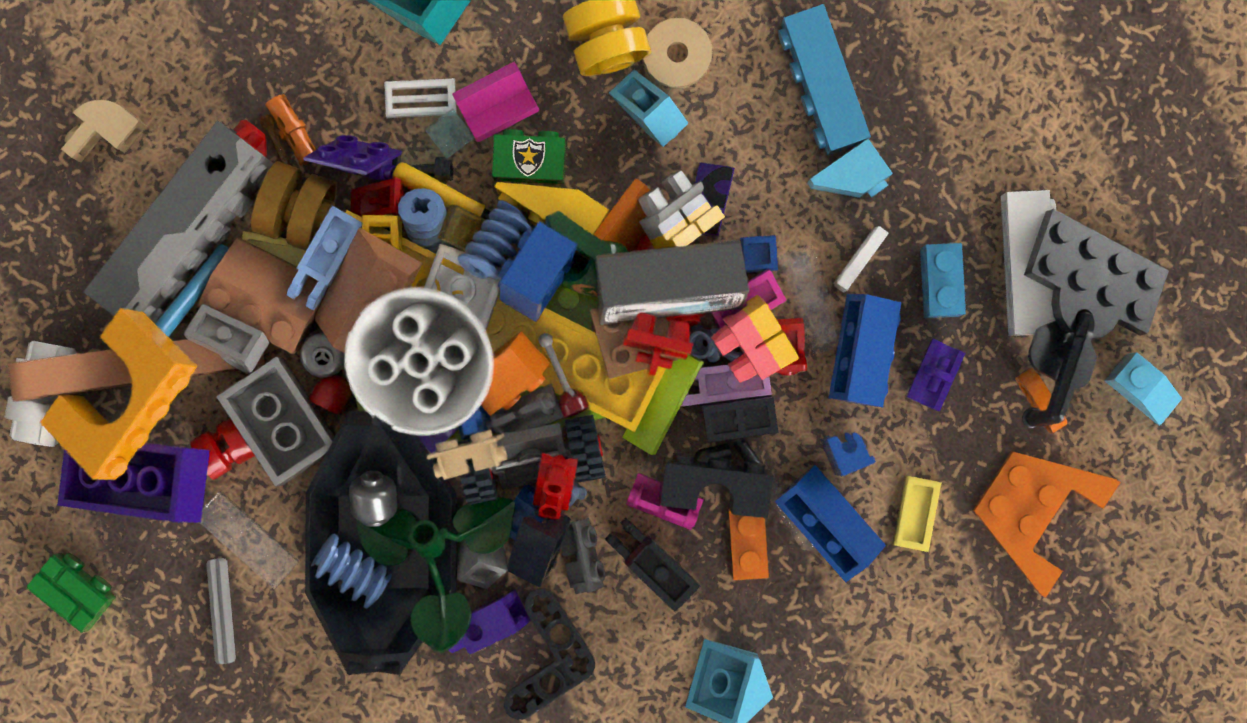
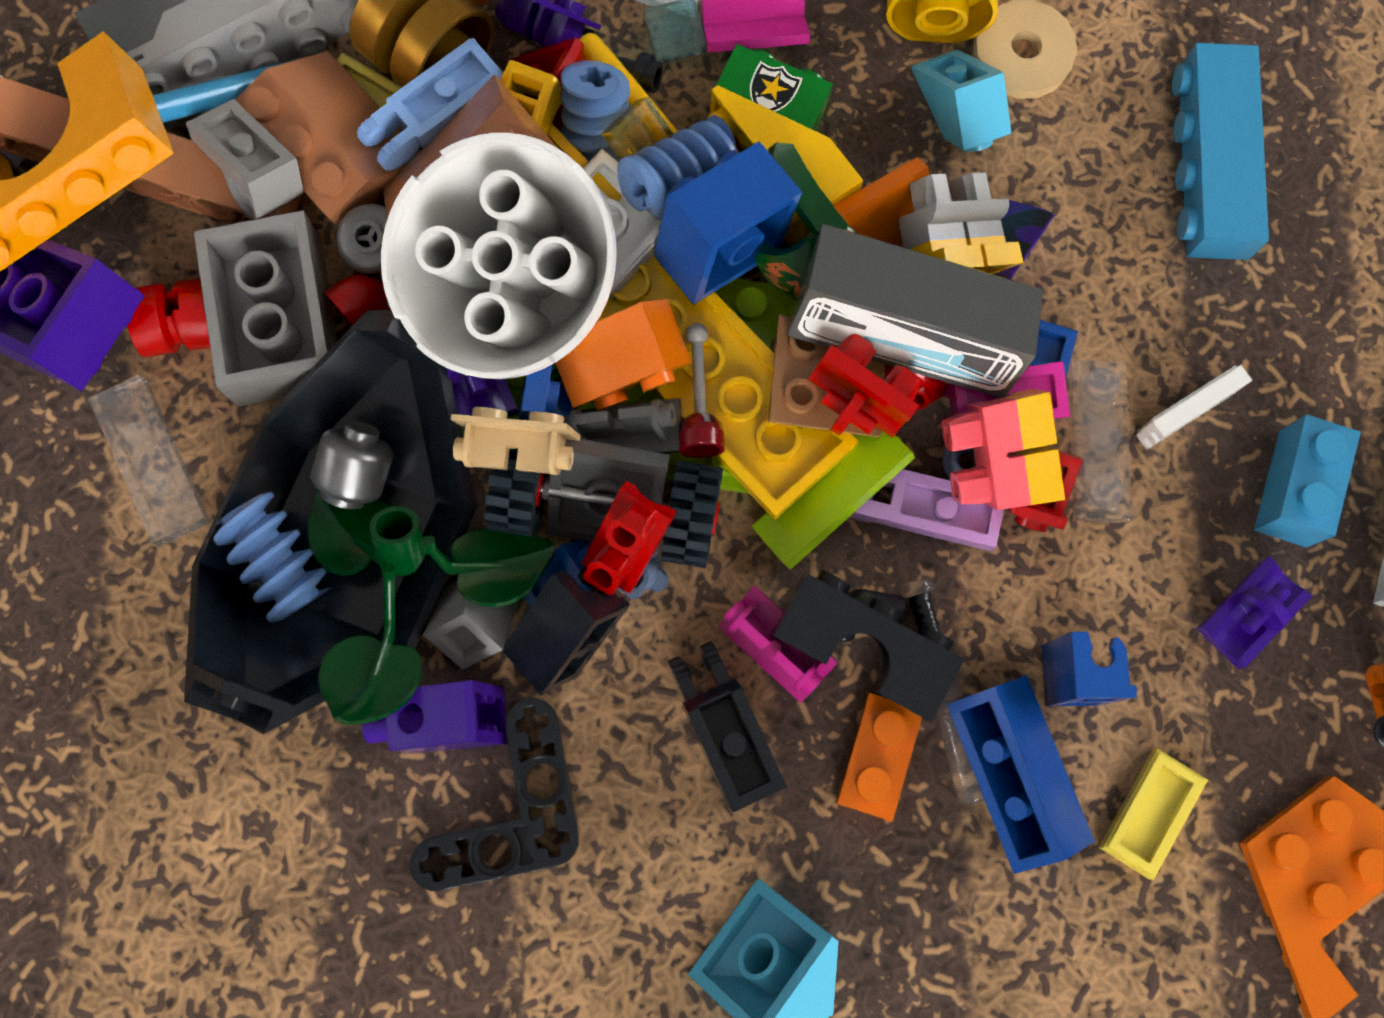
camera: 15 degrees right, 10 degrees down
(221, 611) = (63, 548): light grey axle -> none
(587, 572) = (622, 702): dark grey hinge -> none
(697, 336) = (920, 425): sand blue plate -> none
(739, 418) = (938, 561): black hinge -> none
(854, 173) = (1221, 287): medium azure slope -> none
(865, 350) = (1159, 536): blue brick -> none

